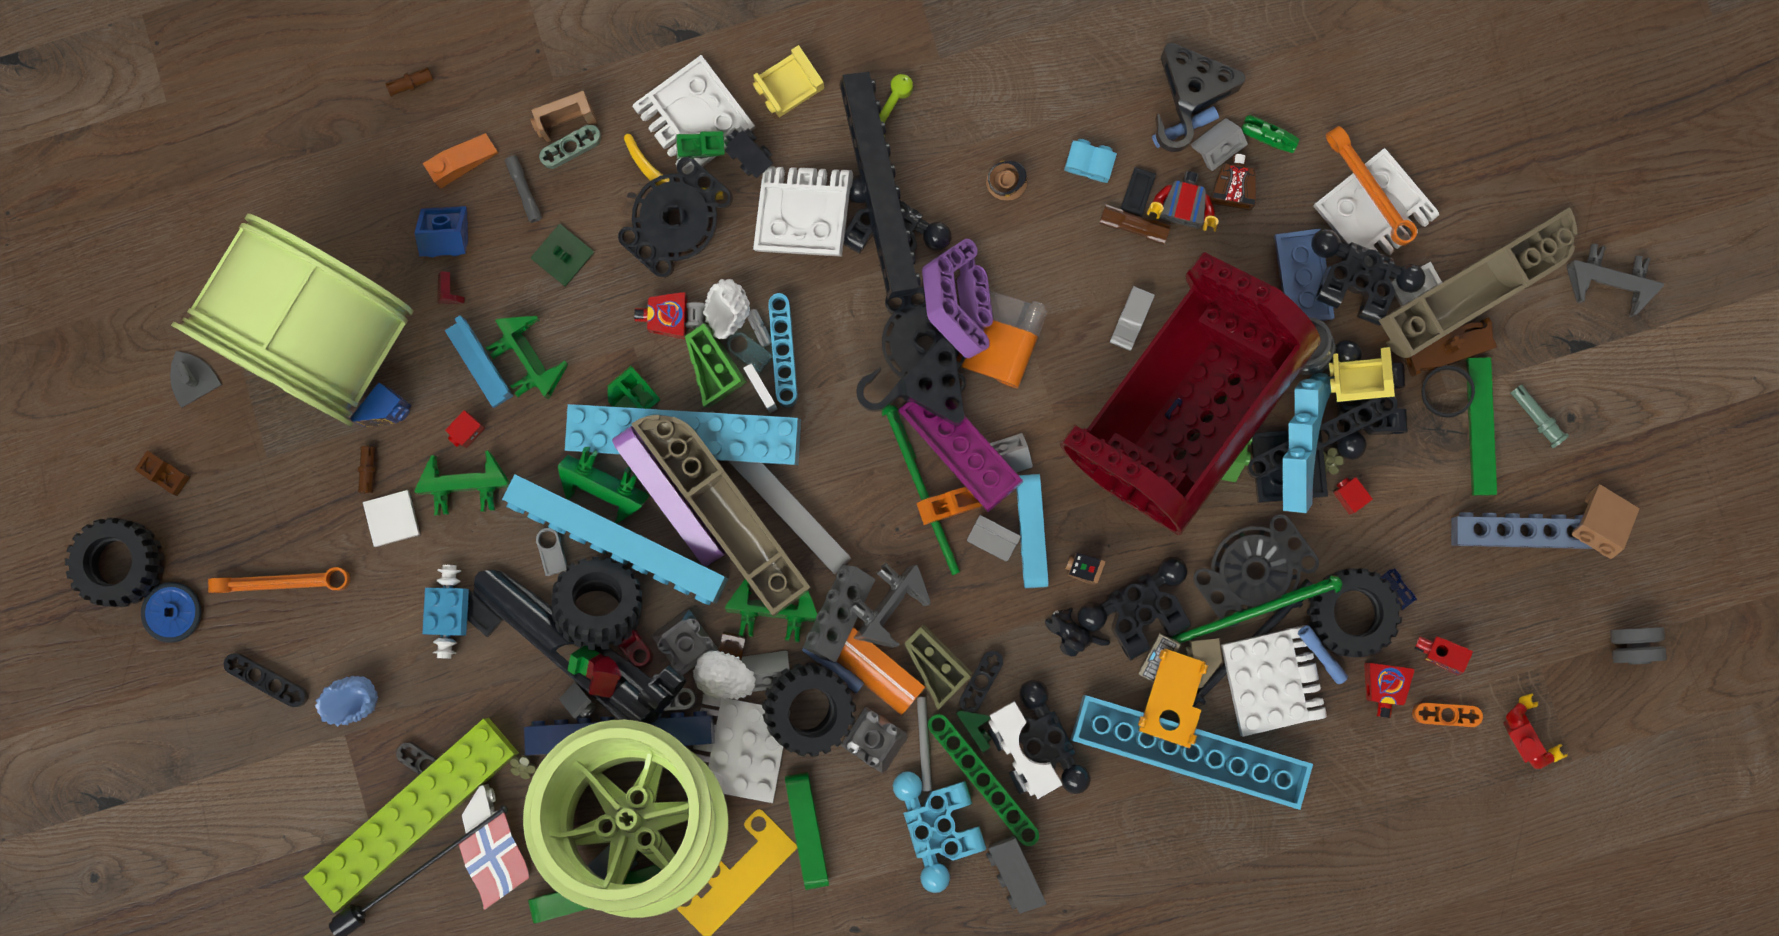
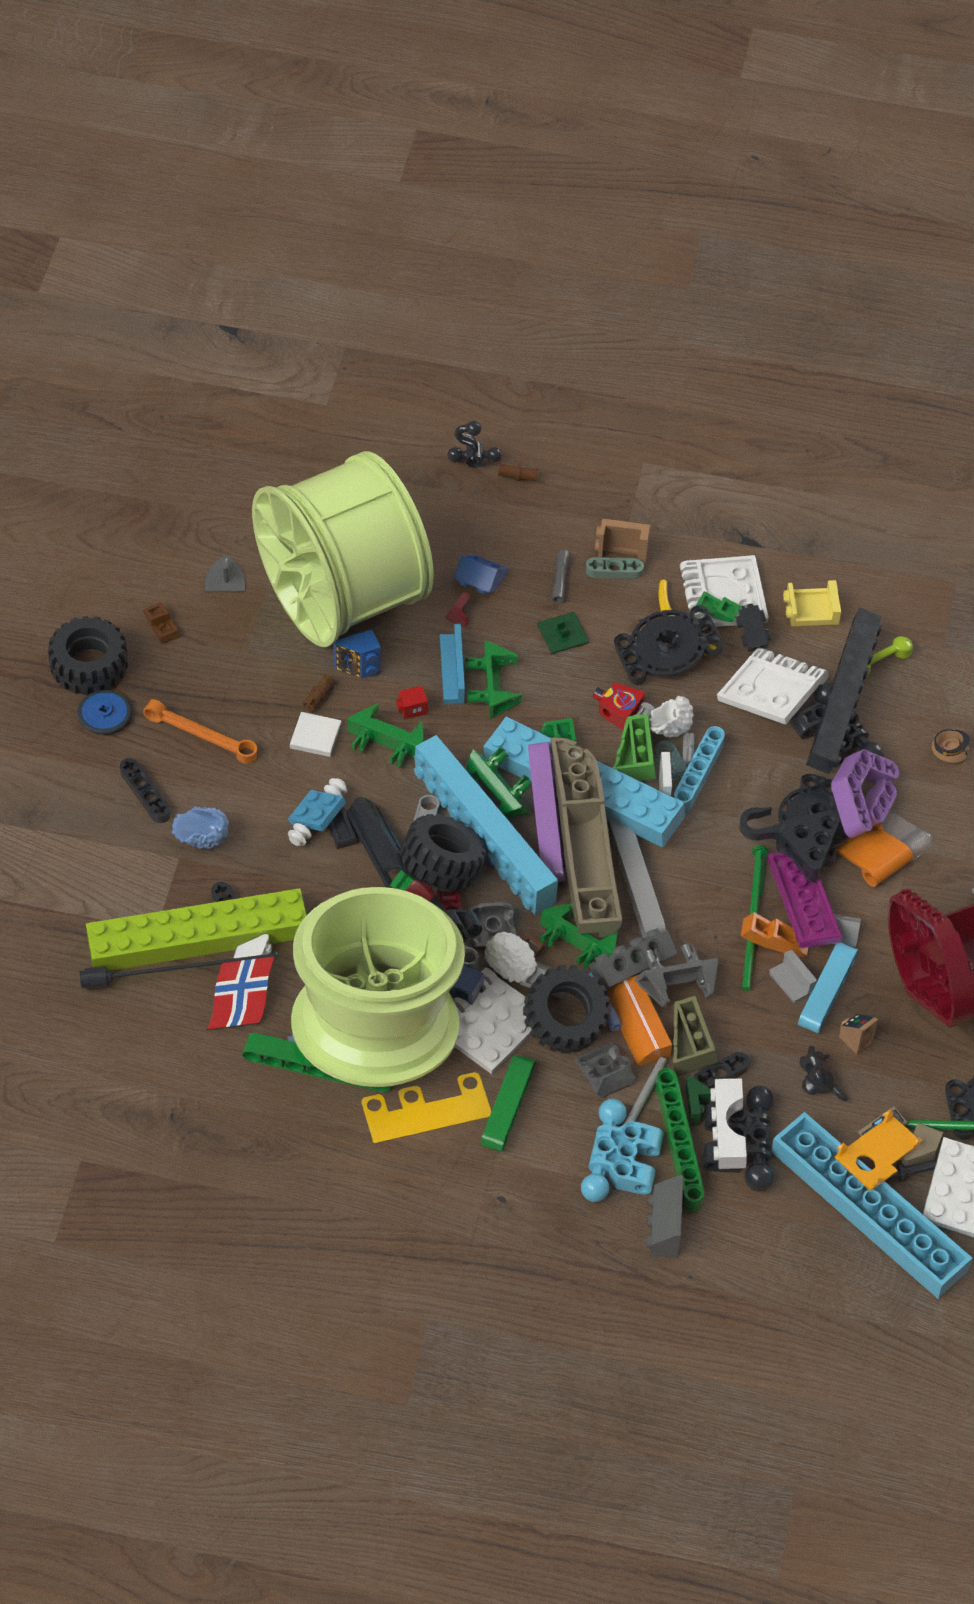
camera: 25 degrees right, 30 degrees down
(344, 81) = (474, 450): none -> black piece
(459, 160) = (522, 535): orange slope -> none
(1173, 619) = (903, 1077): black connector -> none

